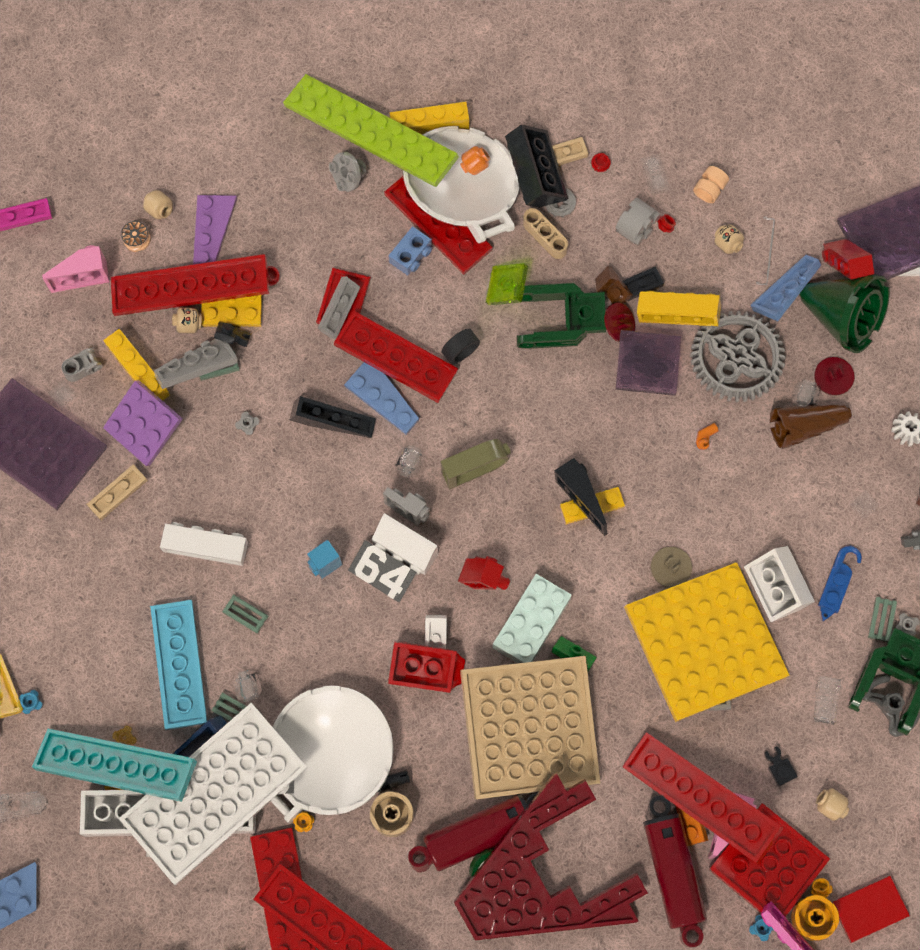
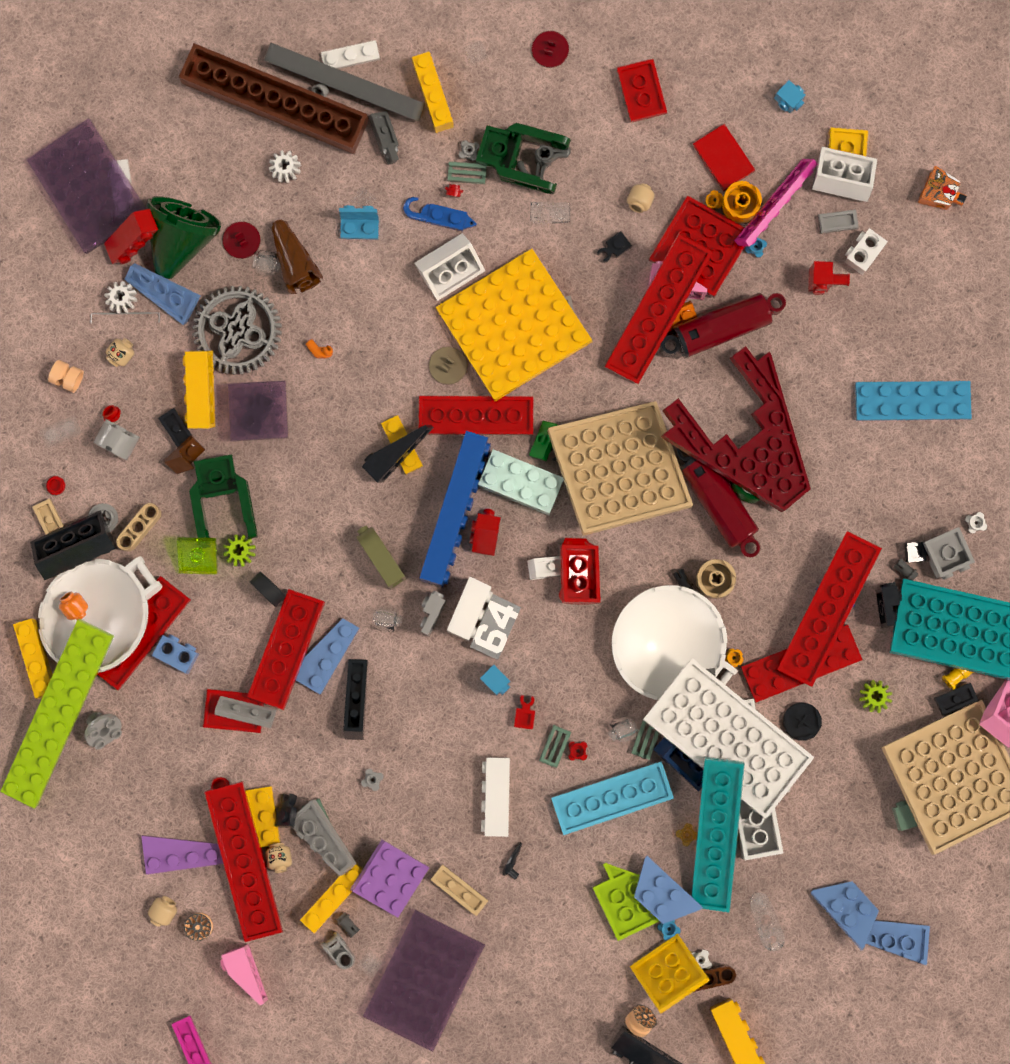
camera: 100 degrees left, 10 degrees up
(65, 699) = (662, 894): none -> medium blue wing
(66, 670) = (620, 906): none -> lime wing
(107, 377) = (347, 924): none -> dark grey pin
(128, 545) = (508, 868): none -> black bar
(220, 886) = (802, 721): none -> black tile
(231, 632) = (573, 754): none -> red plate
(282, 586) = (525, 717): none -> red plate
(512, 545) = (454, 509): none -> blue brick
(513, 326) = (234, 547): none -> lime gear
(612, 587) = (477, 415): none -> red plate
(618, 318) = (218, 444): dark red piece -> none
(782, 252) = (113, 297): none -> white gear
(837, 496) = (359, 223): none -> dark azure bracket
(863, 601) = (453, 190): none -> red plate

